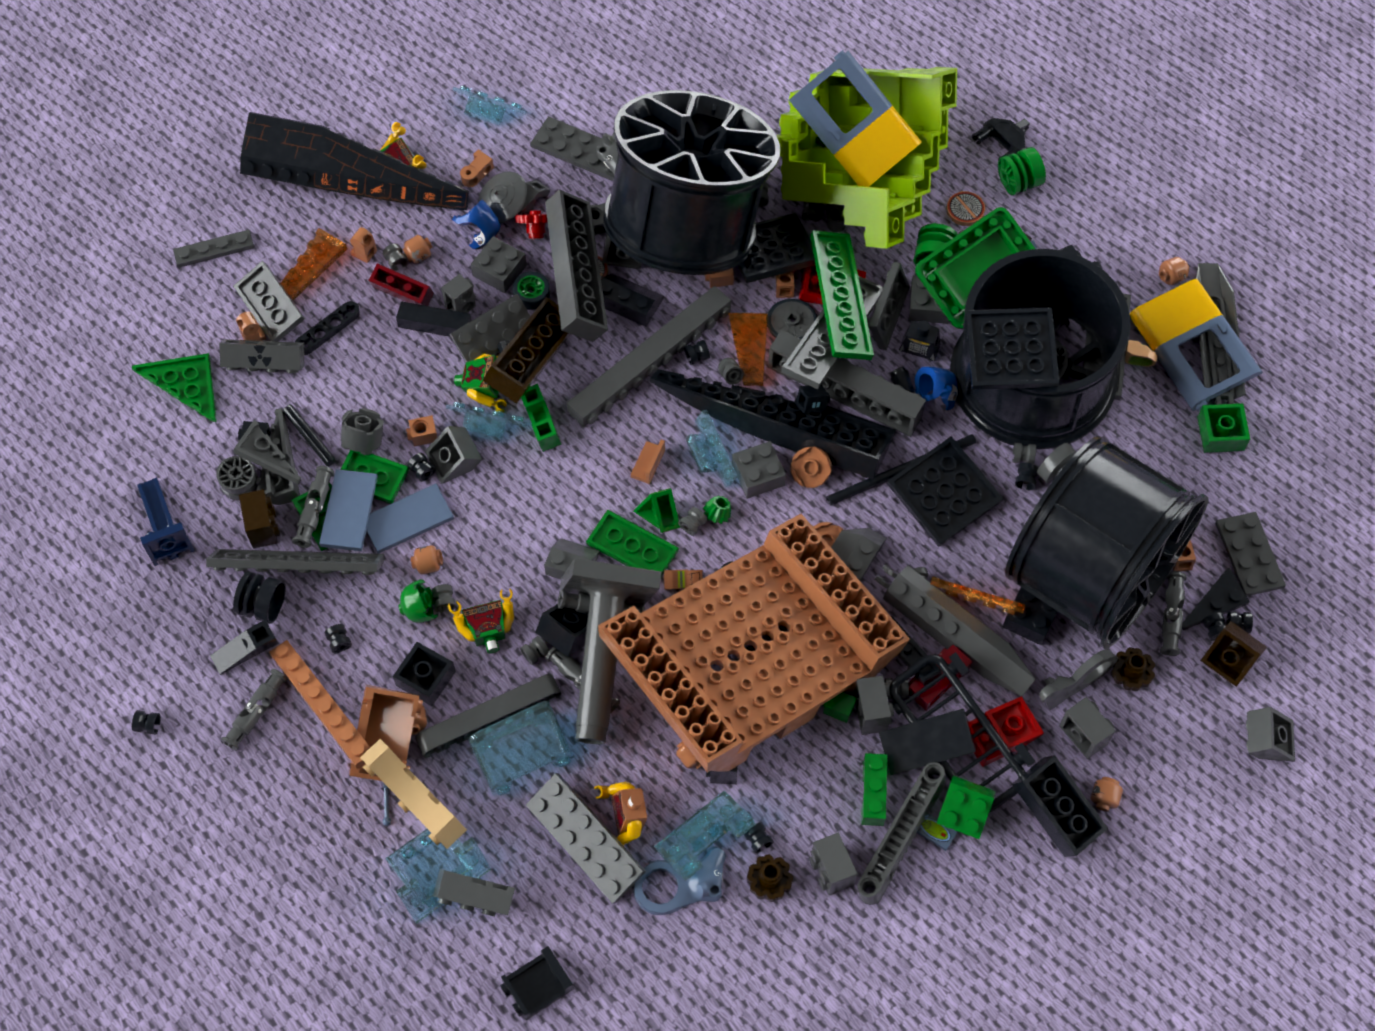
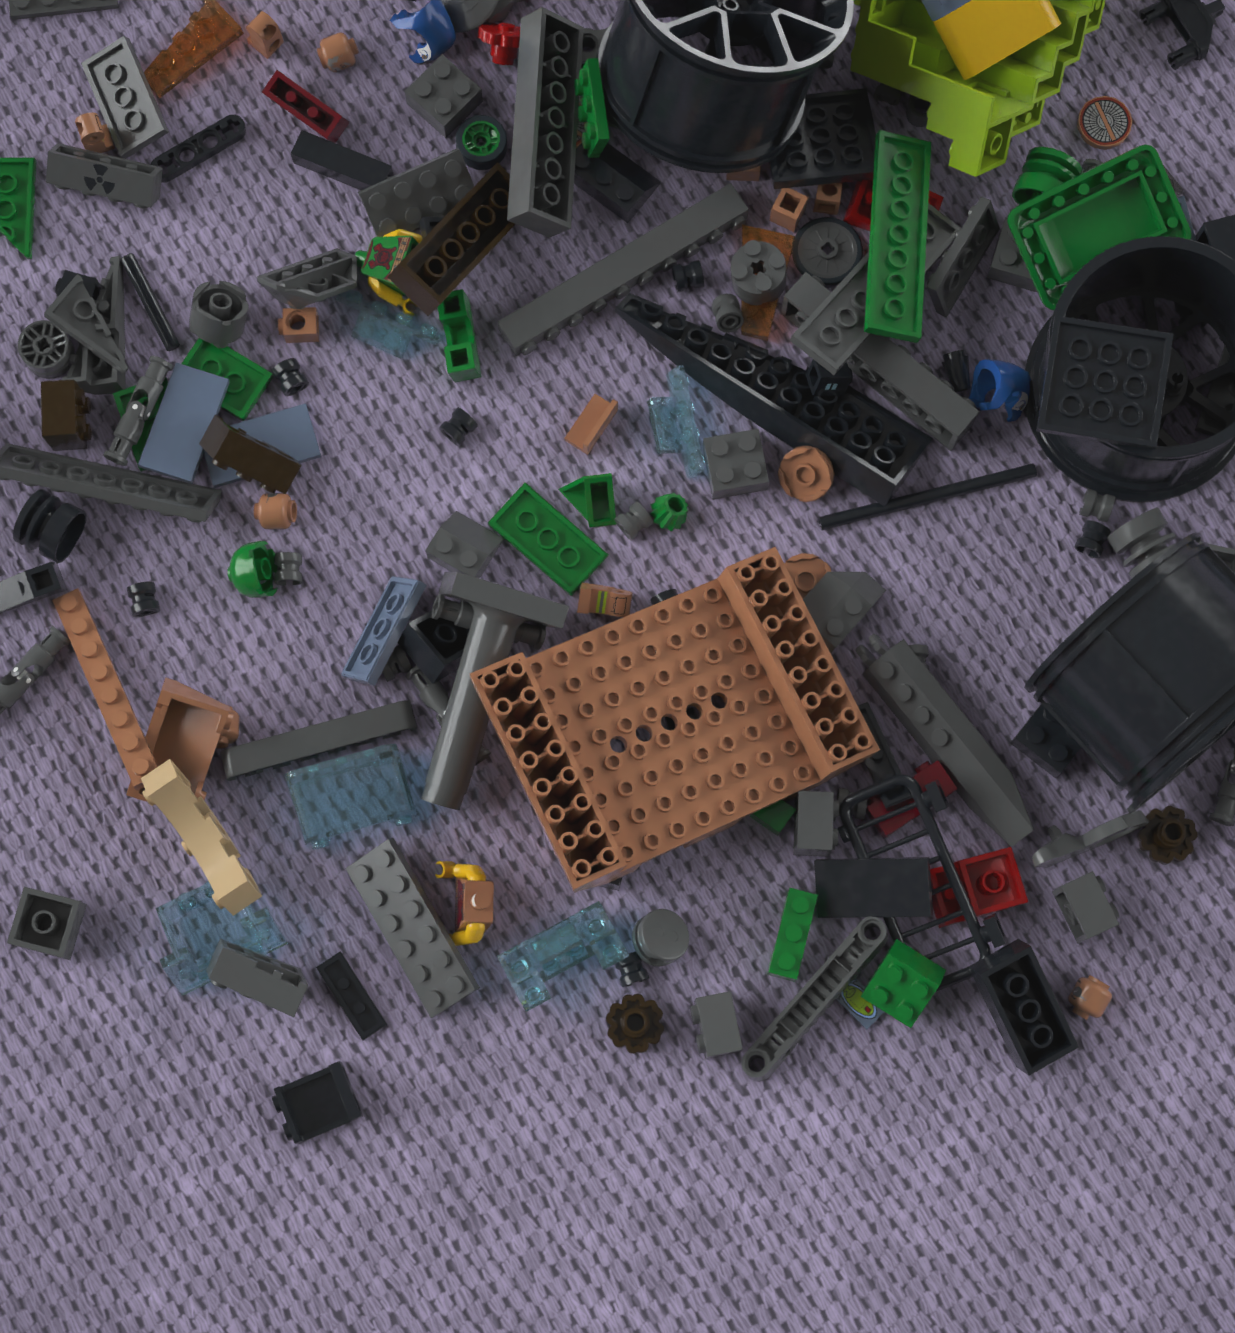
camera: 10 degrees right, 15 degrees up
(301, 885) = (47, 923): none -> dark grey brick
(386, 821) = (167, 855): sand blue hinge -> none
(394, 255) = (305, 56): dark grey wheel -> none
(402, 521) = (249, 456): none -> dark brown wedge
(424, 673) = (245, 670): black brick -> none
(426, 397) = (312, 279): none -> dark grey wedge
(453, 453) = (335, 366): dark grey slope -> none
(459, 294) = (381, 135): dark grey brick -> none
(485, 622) = (336, 613): torso -> none
(523, 627) = (383, 630): none -> sand blue tile
(548, 899) = (351, 996): none -> black tile
(551, 479) = (458, 426): none -> black wheel
(608, 248) = (592, 108): none -> green plate
(702, 886) = (549, 1018): sand blue animal -> none
(747, 339) = (771, 279): none -> dark grey brick
(759, 296) = (788, 208): none -> nougat brick
(776, 809) = (660, 937): none -> dark grey head
(921, 340) = (995, 315): black torso -> none
(945, 491) = (977, 540): black plate -> none
(972, 595) = (985, 700): clear orange wing -> none
(1021, 171) = (1195, 82): green wheel -> none

